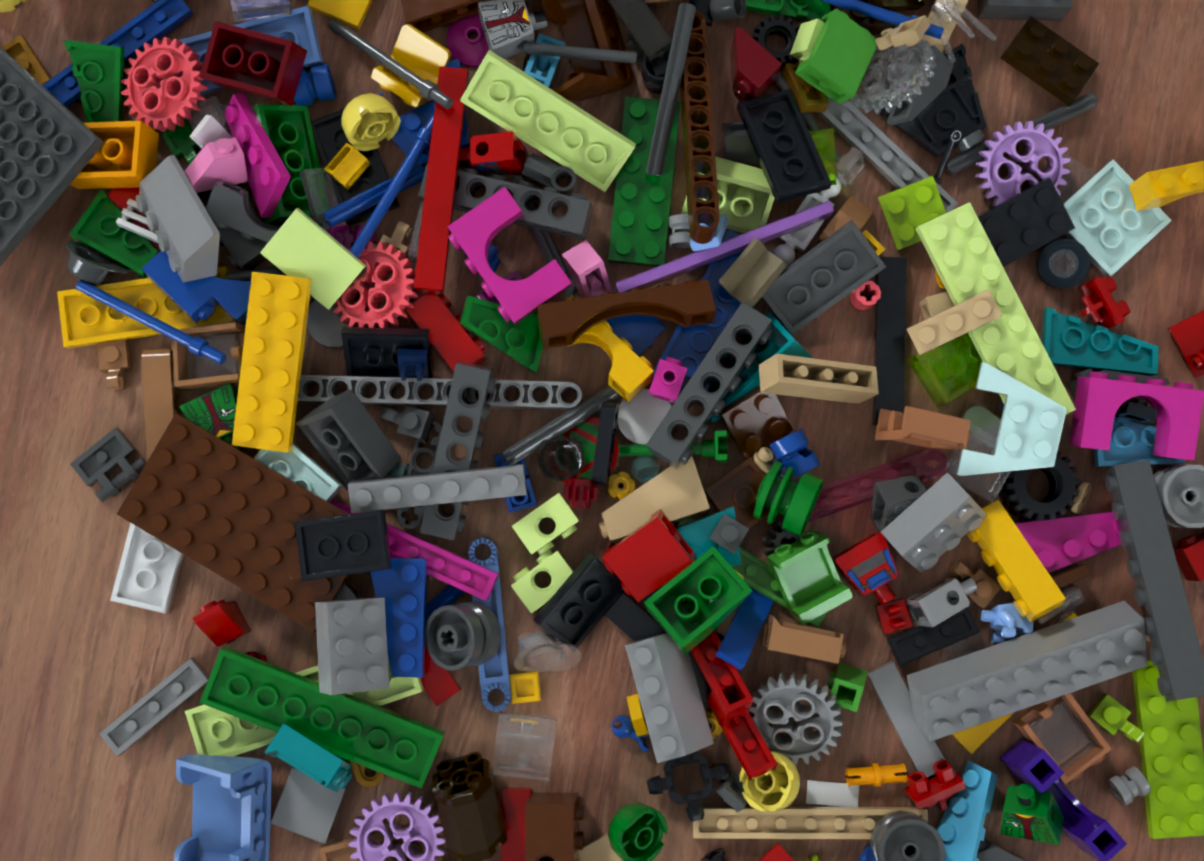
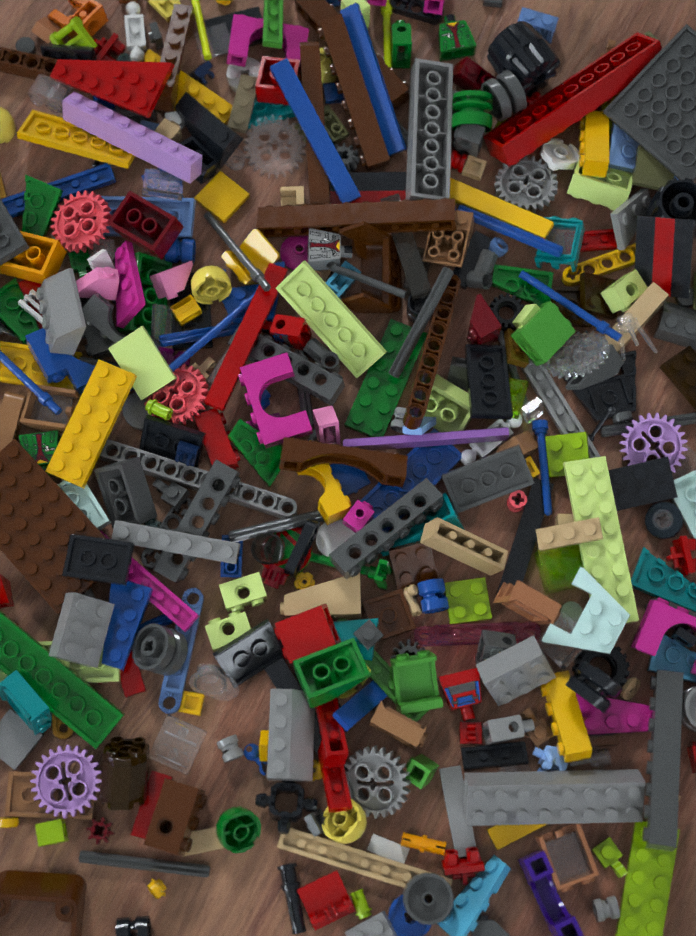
camera: 15 degrees right, 10 degrees down
(315, 131) = (172, 280): none -> bright pink slope
(357, 316) = (158, 409): none -> lime pin
(594, 731) = (230, 748): none -> light grey wheel
(644, 468) = (324, 573): clear light blue plate -> none
(752, 273) = (439, 461): dark tan panel -> none
(787, 497) = (417, 621): green wheel -> none
(840, 446) = (468, 601): none -> lime plate
(867, 188) = (540, 428): none -> blue piece
(906, 33) = (594, 330): tan plate -> none
(1031, 815) = (525, 902): green torso -> none
(1045, 516) = (594, 686): none -> black wheel

